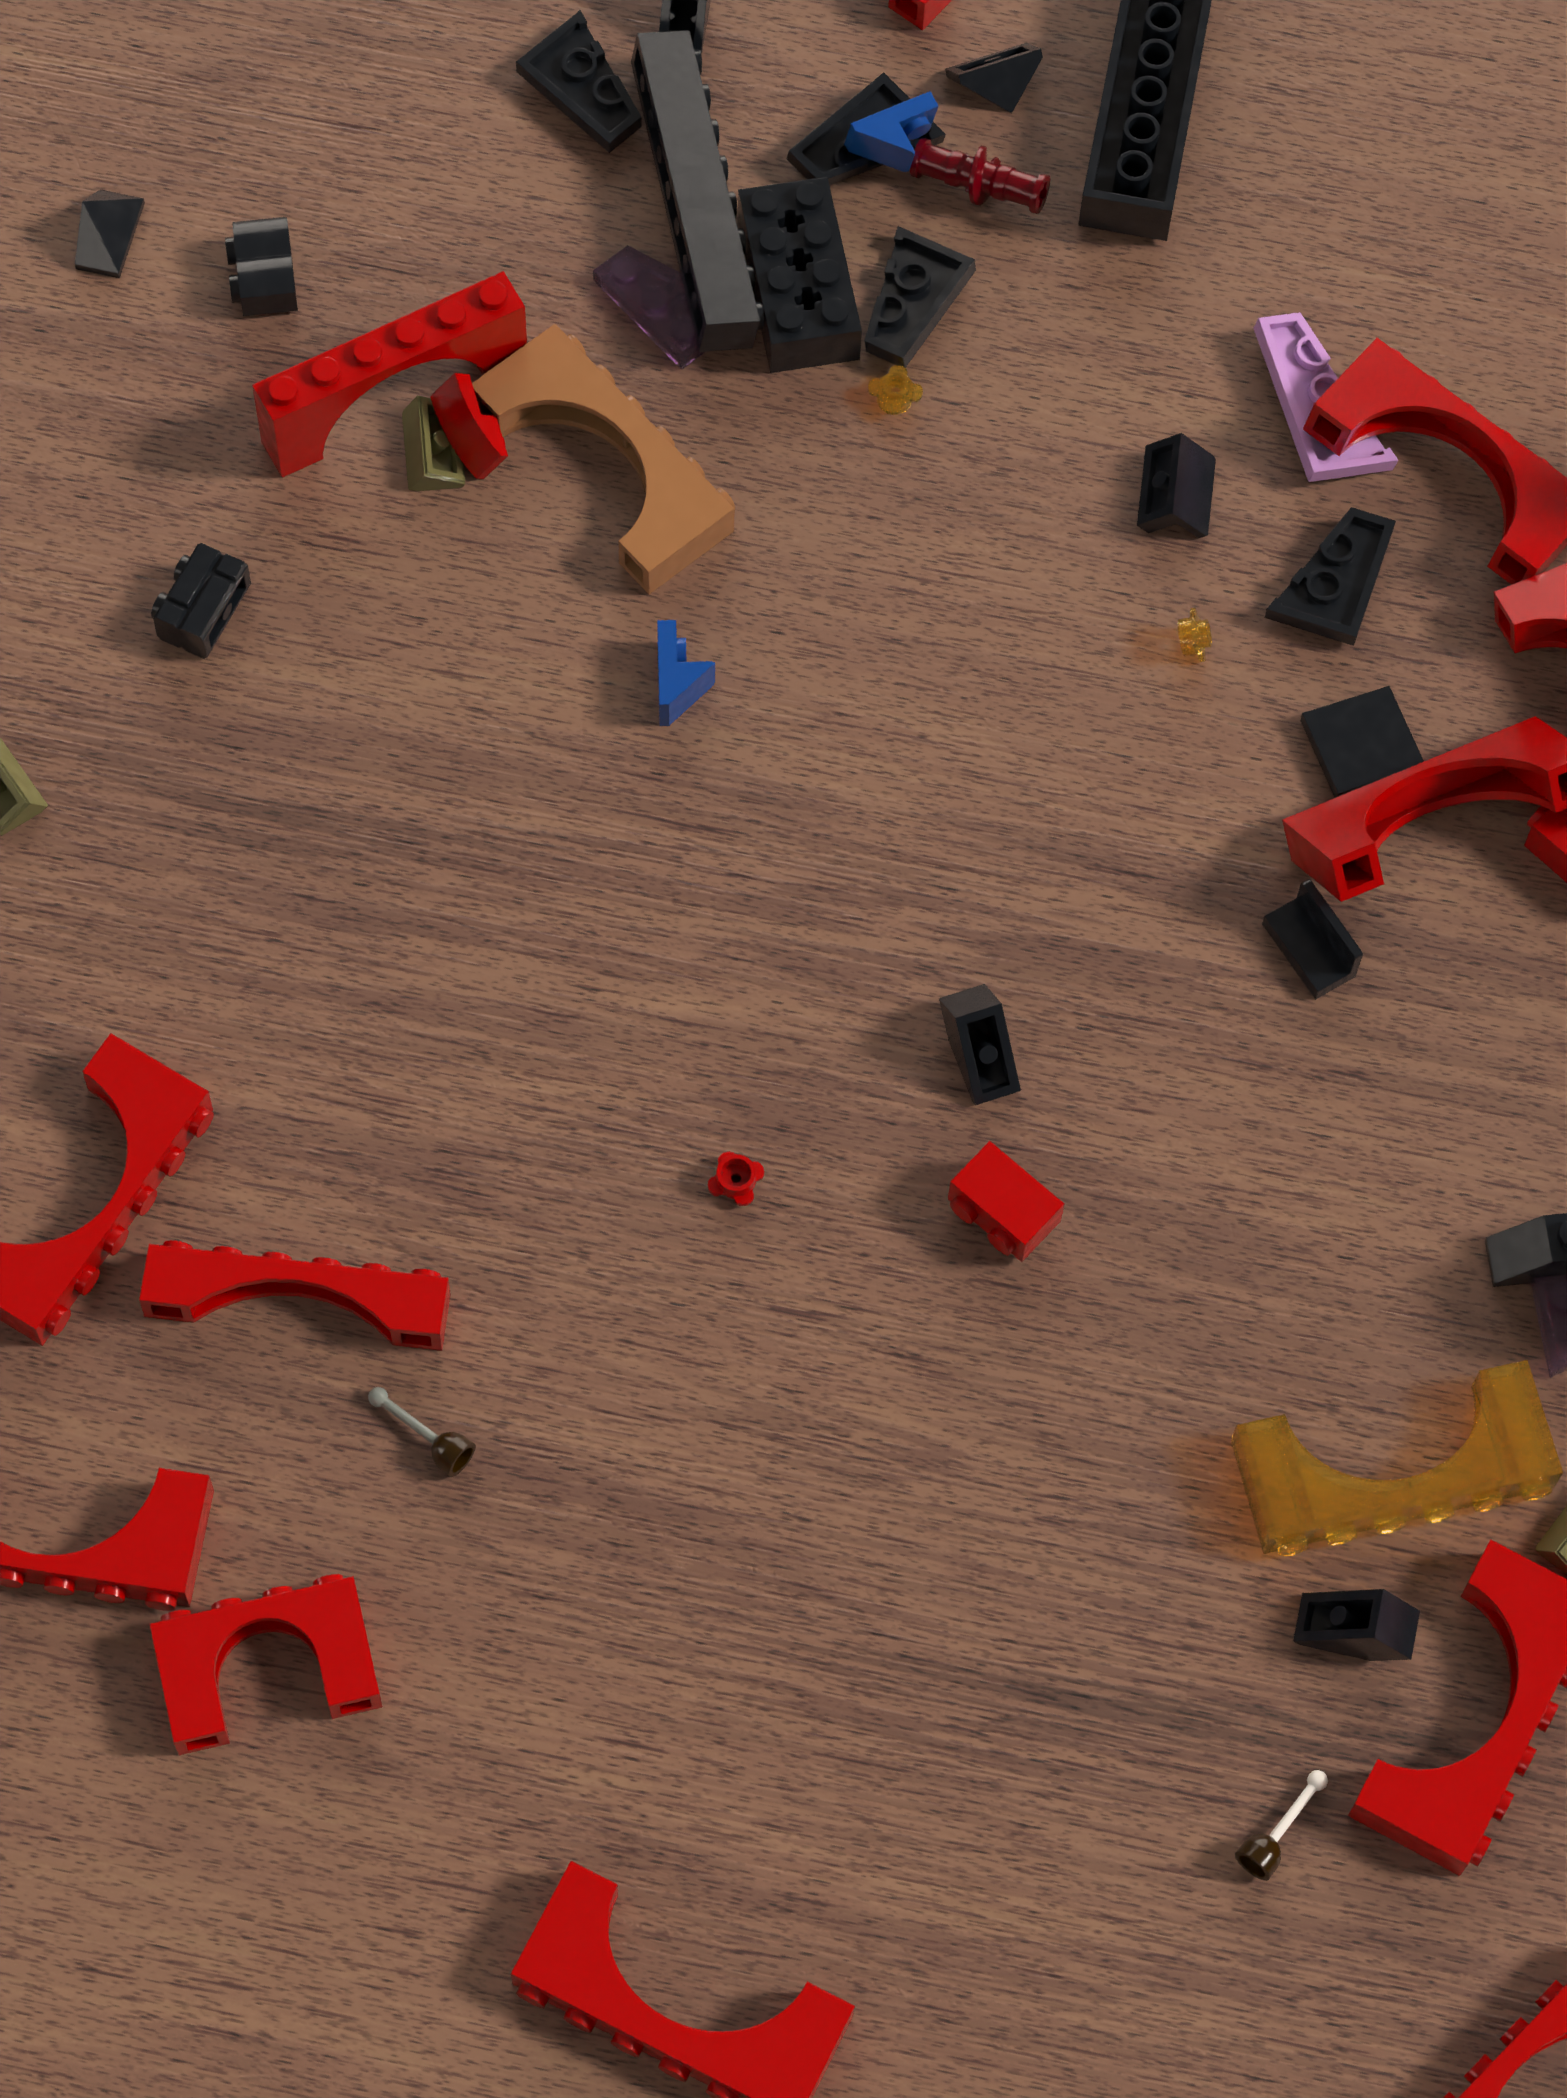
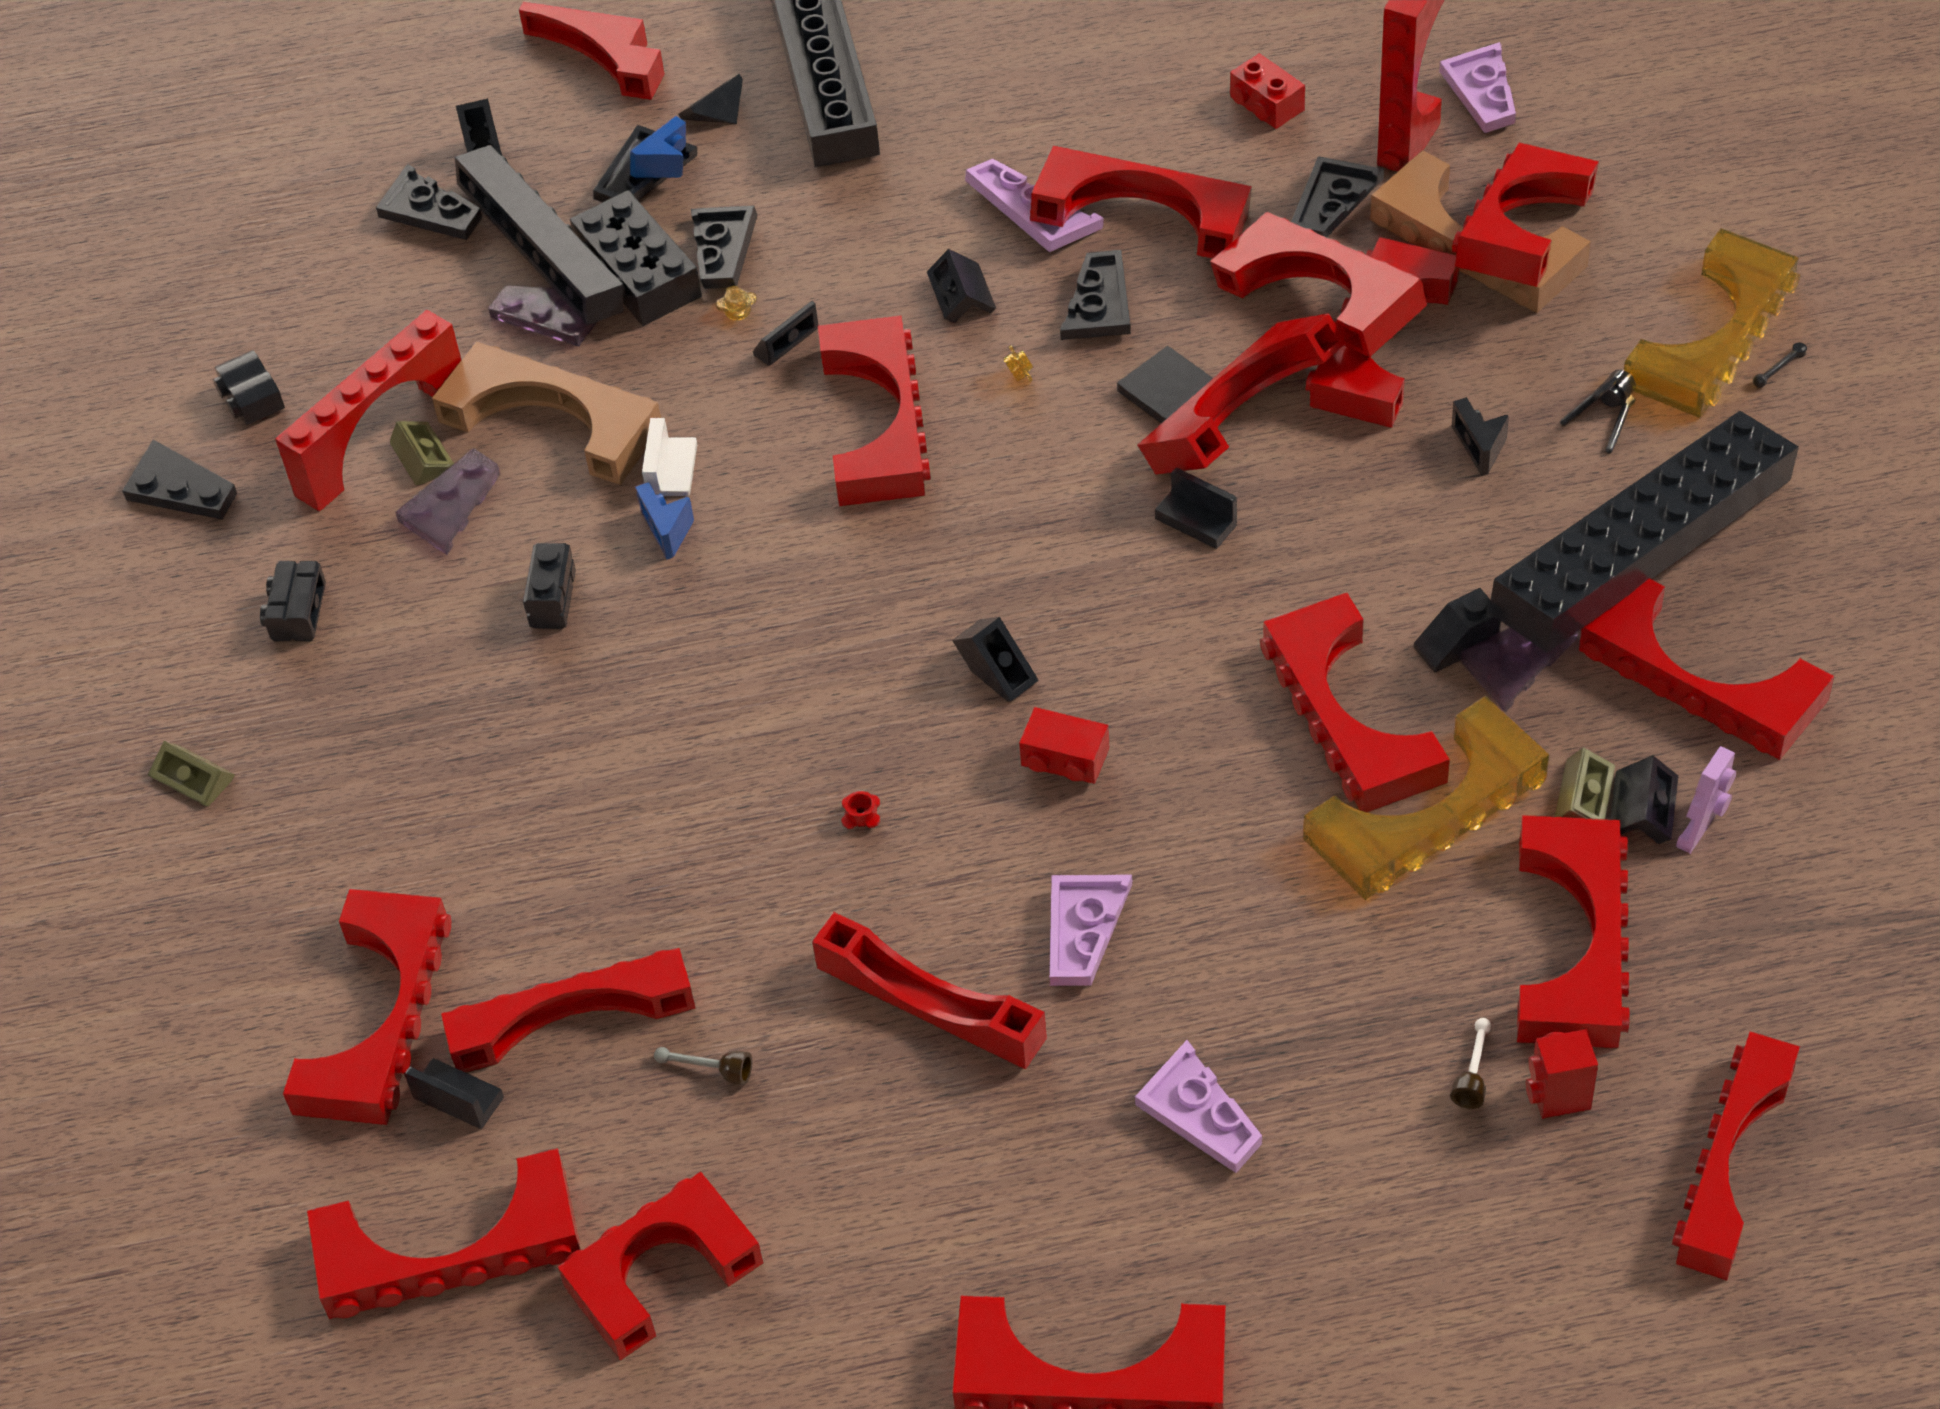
camera: 15 degrees left, 15 degrees down
(106, 232) = (123, 411): black slope -> none
(131, 368) = (178, 484): none -> black wing
(131, 1342) = (454, 1092): none -> black panel
(436, 531) = (448, 500): none -> wing
(471, 434) = (442, 427): red slope -> none
(503, 711) = (549, 586): none -> black brick
(717, 590) = (668, 461): none -> white panel
(740, 1507) = (988, 1021): none -> red arch
(921, 1444) = (1082, 924): none -> lavender wing
(936, 467) = (787, 334): none -> black slope
(944, 1741) = (1197, 1108): none -> lavender wing
(980, 176) = (734, 159): dark red piece -> none
(981, 713) = (891, 463): none -> arch
(1355, 1386) = (1372, 764): none -> red arch
(1358, 1624) = (1457, 910): black slope -> none
(1368, 1892) = (1562, 1073): none -> red brick

